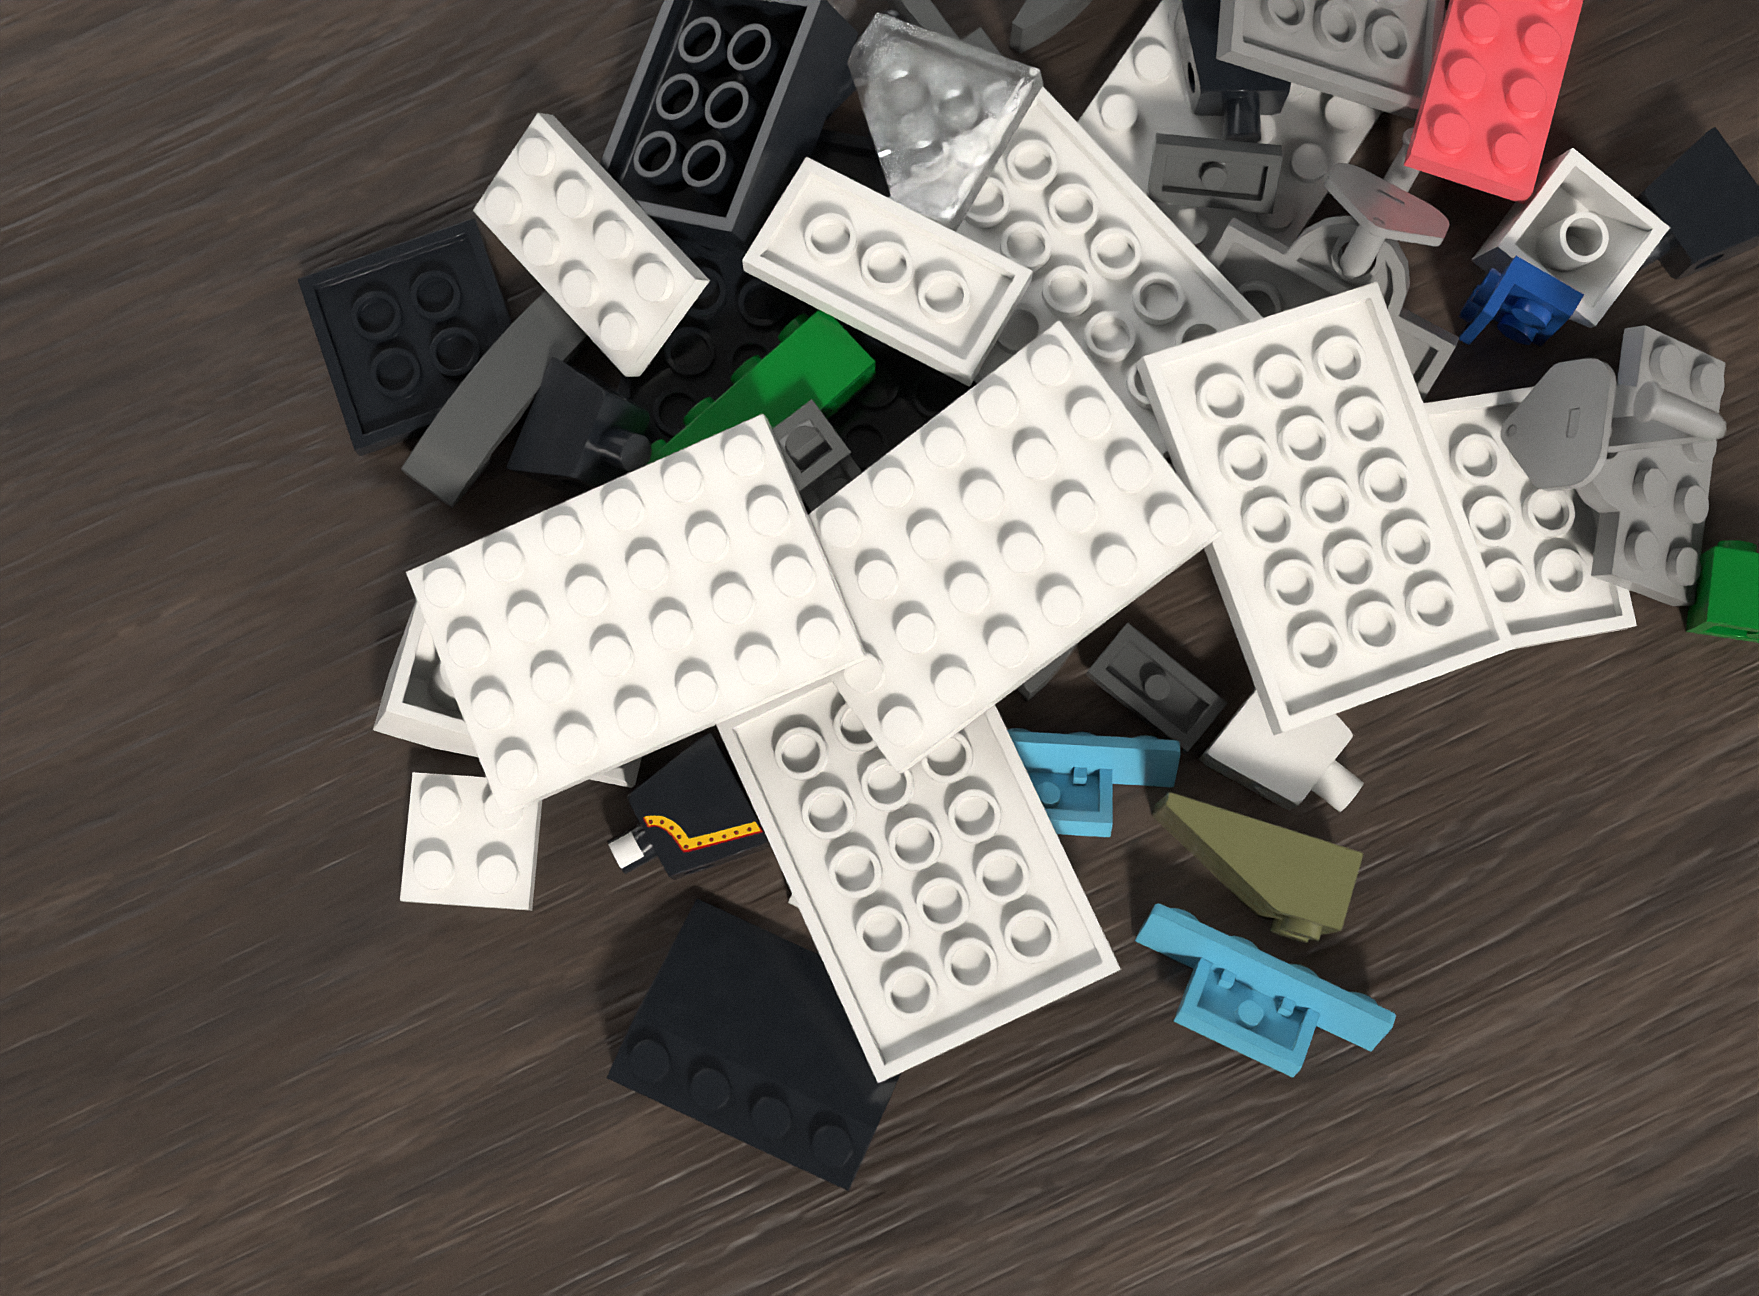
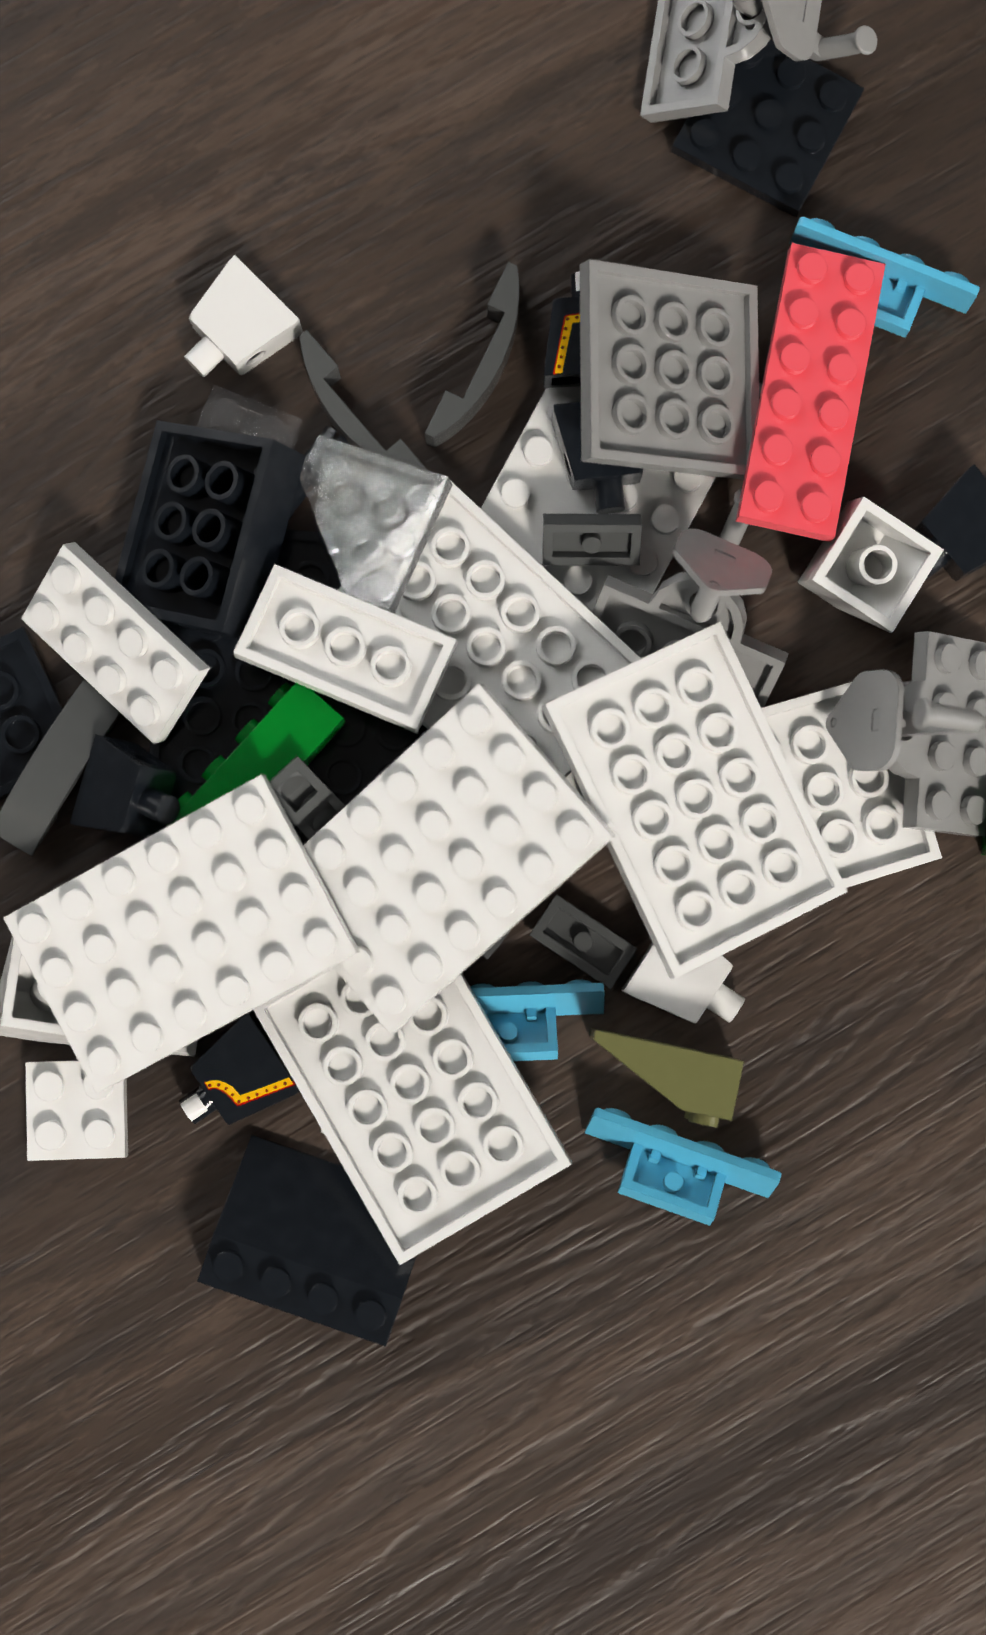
camera: 10 degrees left, 5 degrees up
(1522, 301) = (837, 617): blue bracket -> none

